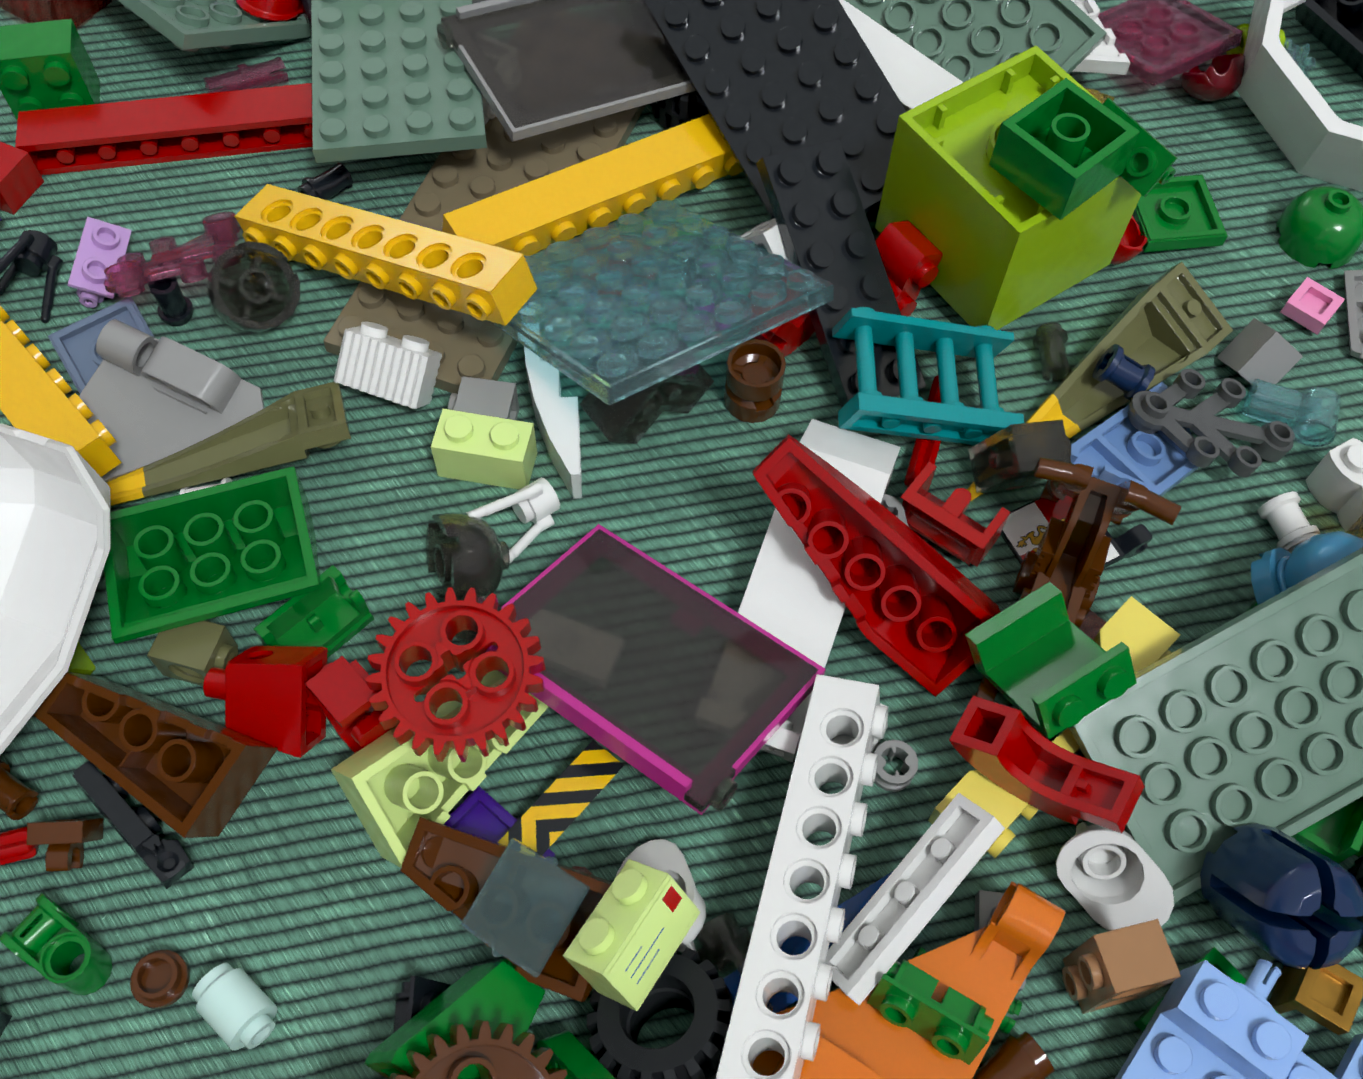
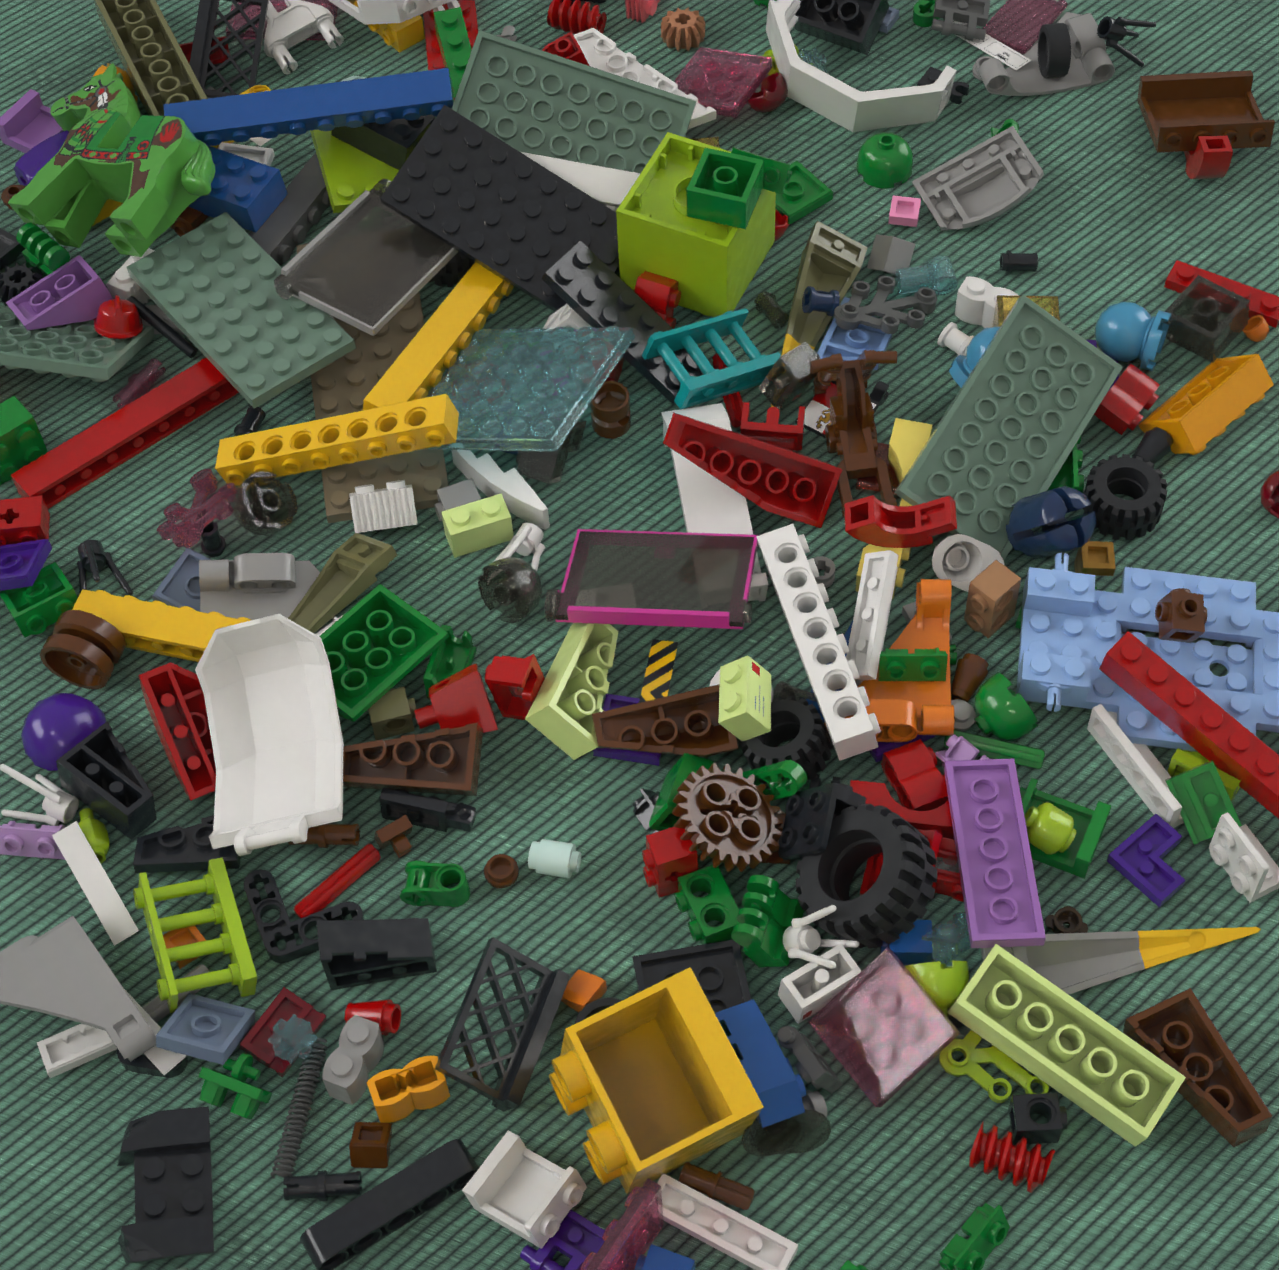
camera: 25 degrees left, 5 degrees down
(98, 249) = (145, 539): lavender hinge -> none
(484, 709) = (597, 636): red gear -> none
(525, 907) = (679, 720): clear light blue piece -> none
(1048, 662) = (871, 470): green panel -> none

